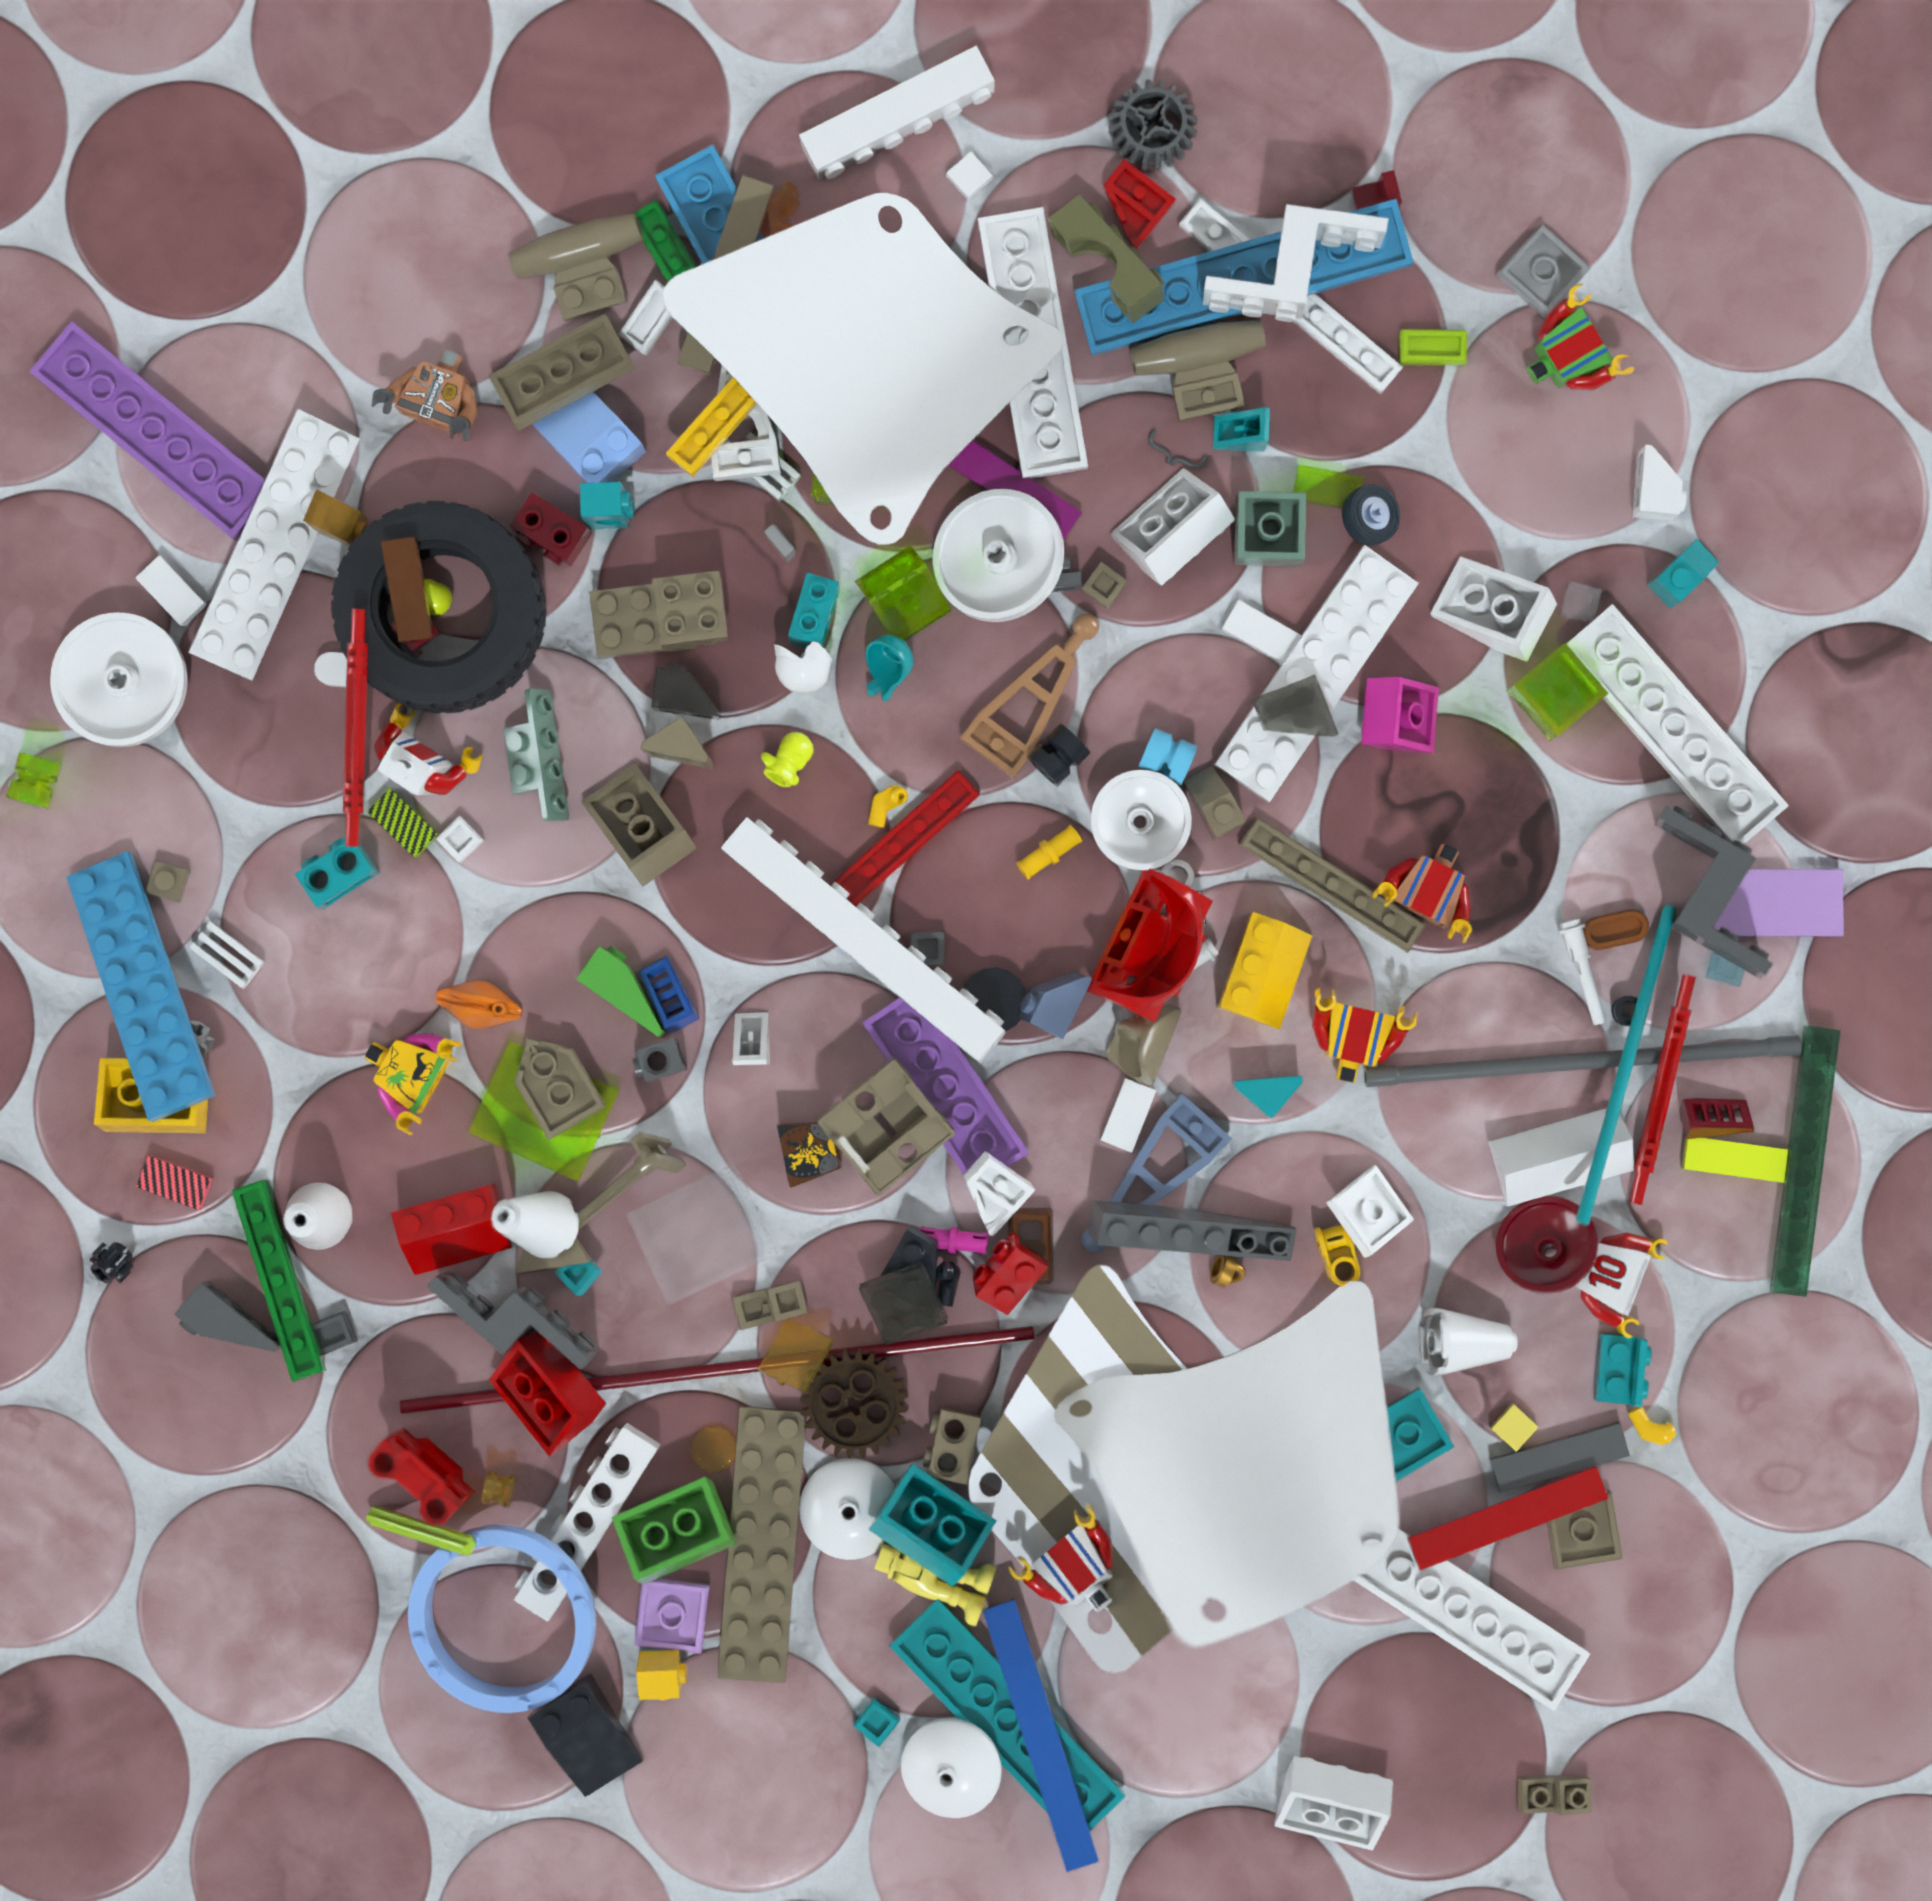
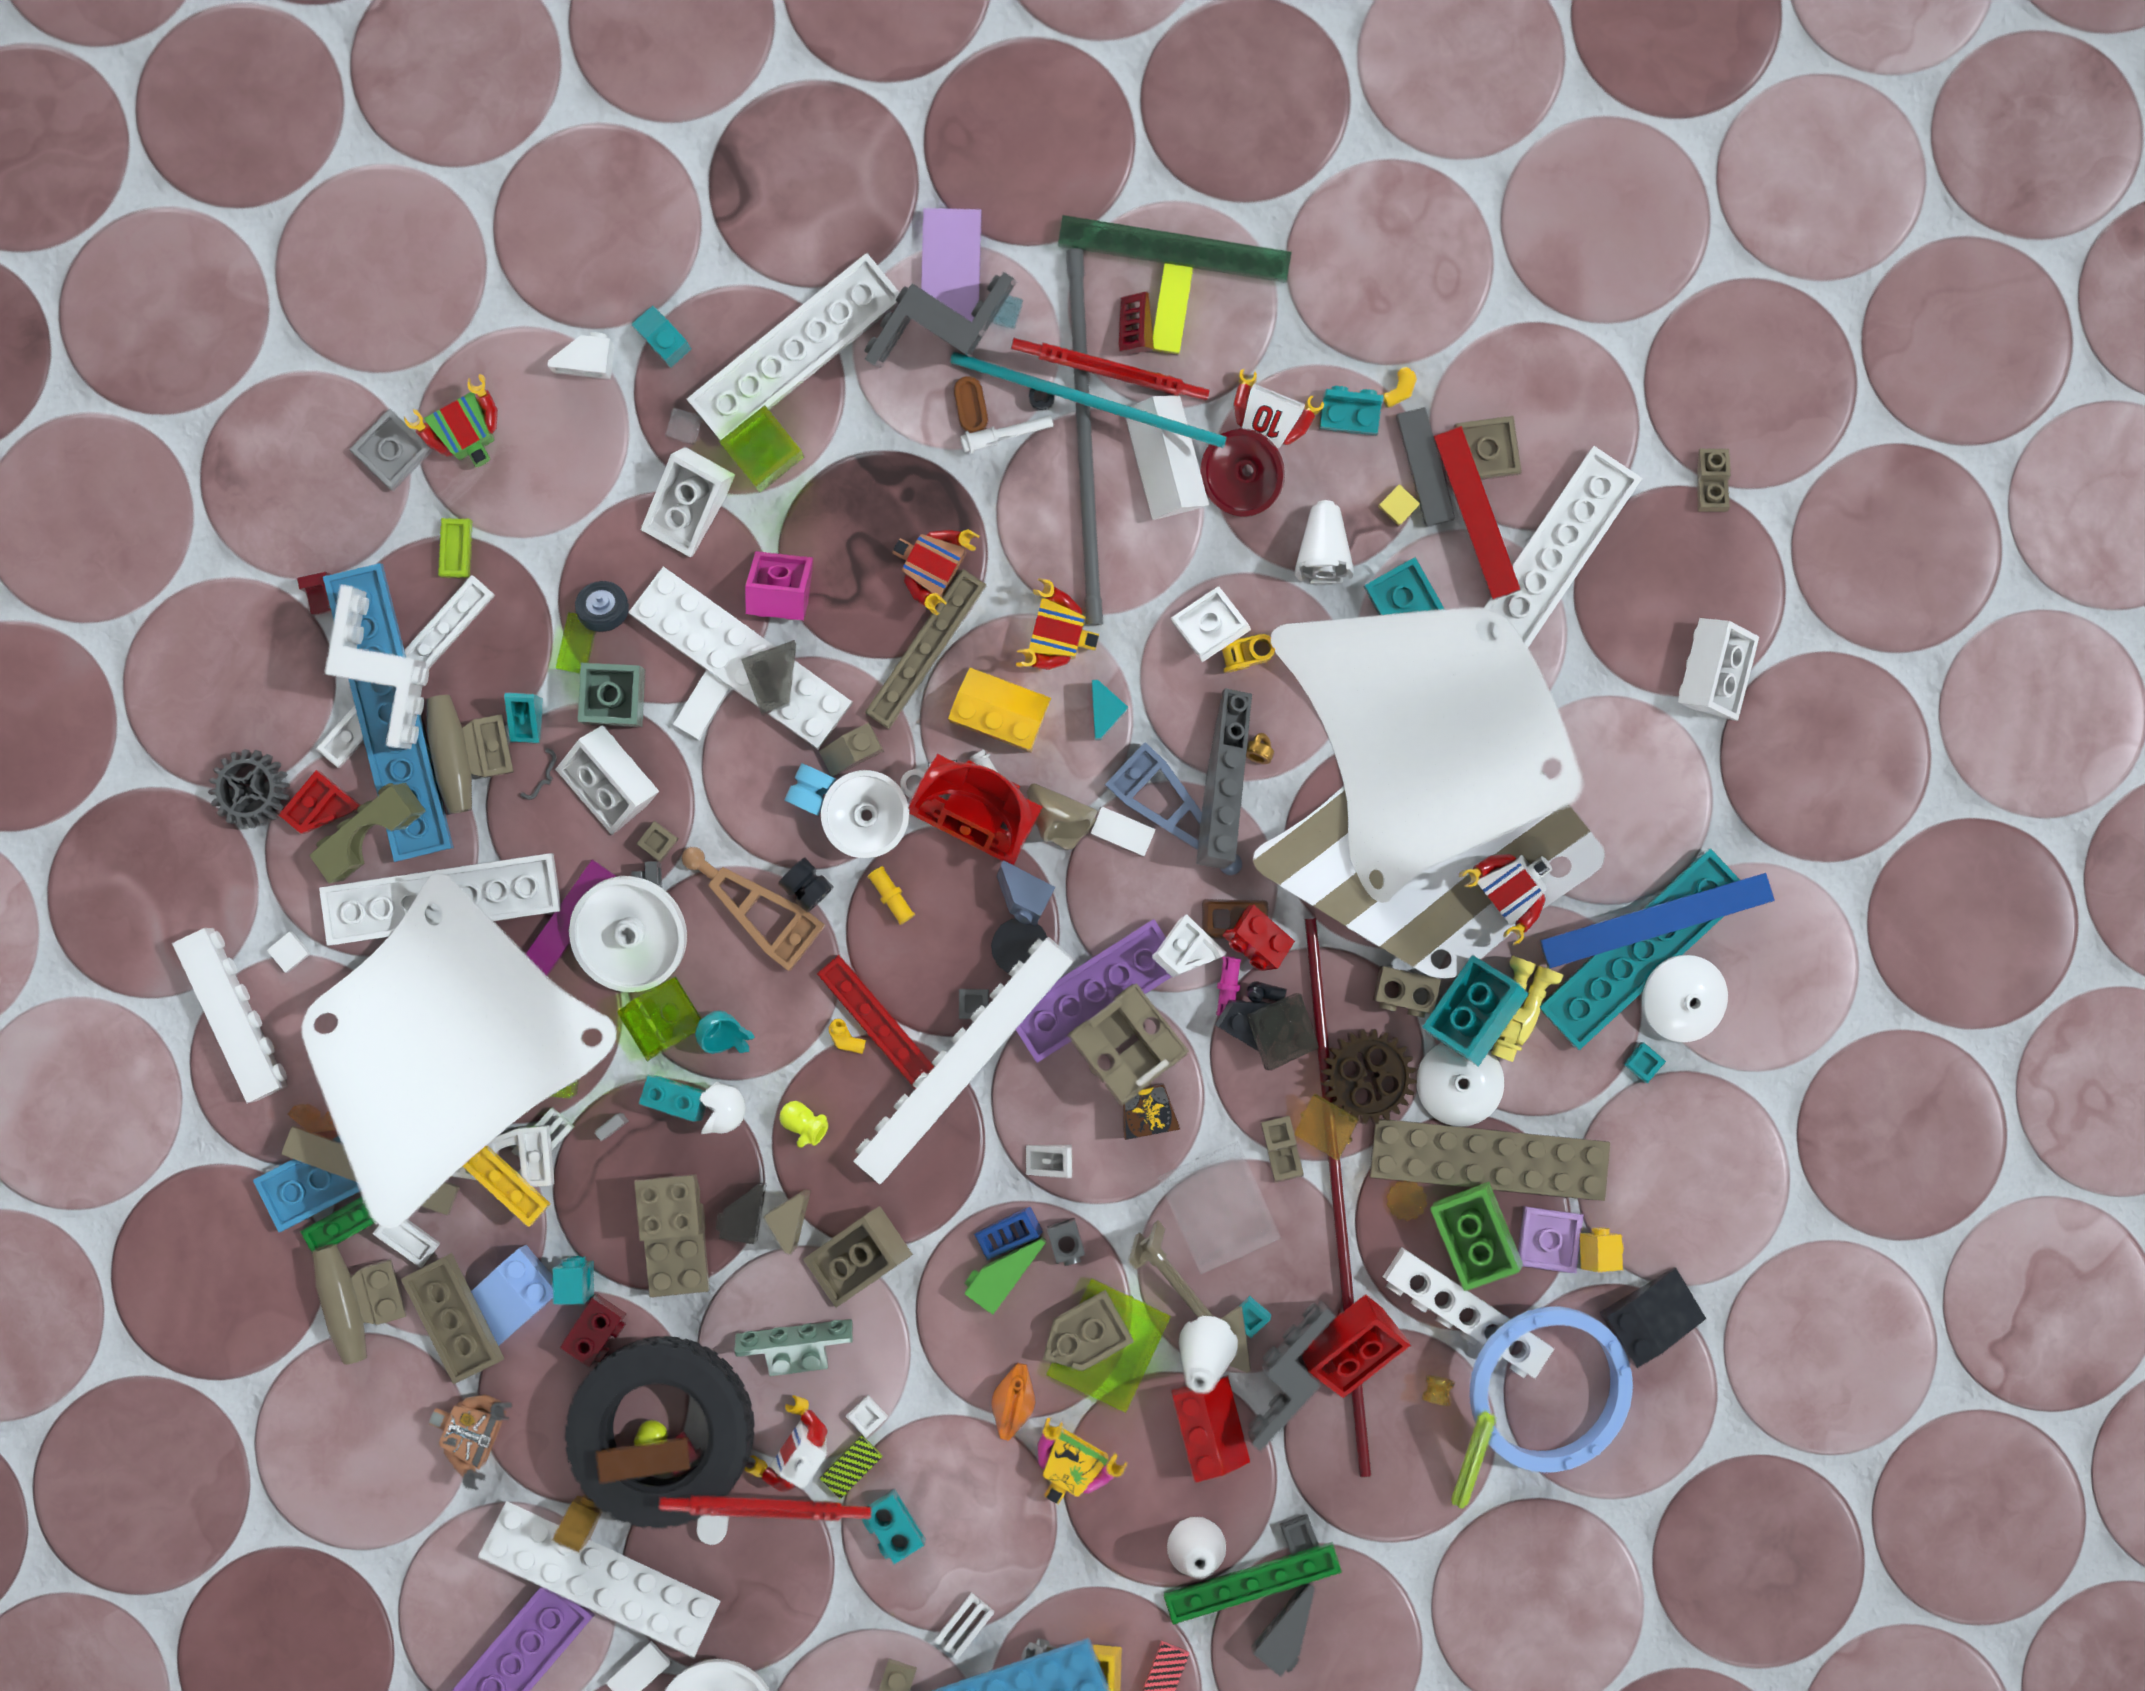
camera: 90 degrees left, 0 degrees up
(423, 1472) = (1423, 1456): red piece -> none

